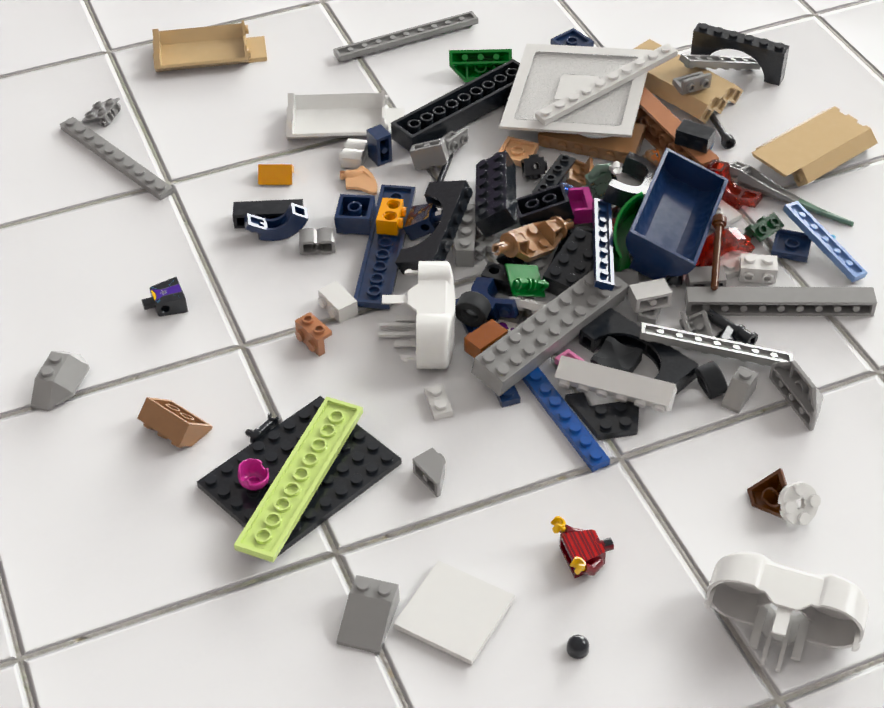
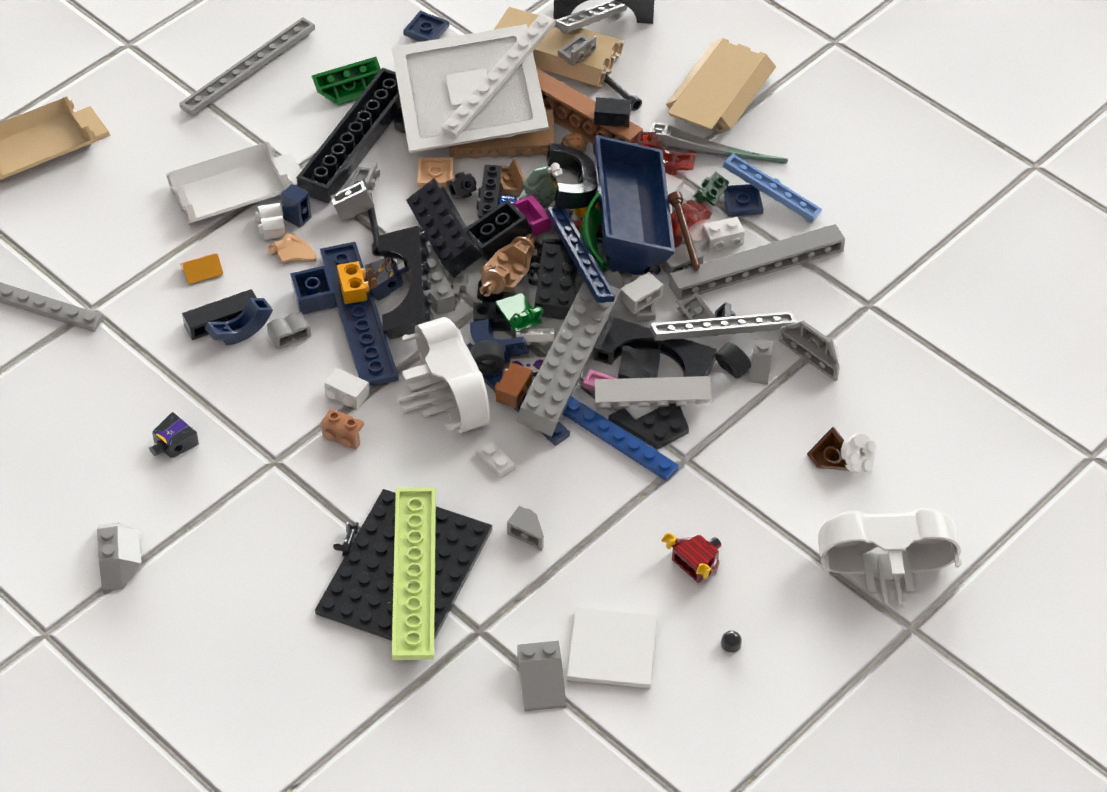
camera: 25 degrees left, 5 degrees up
(173, 422) = (257, 560): medium nougat slope -> none
(252, 474) = (370, 586): dark pink hair -> none
(739, 333) = (736, 305): black pin -> none

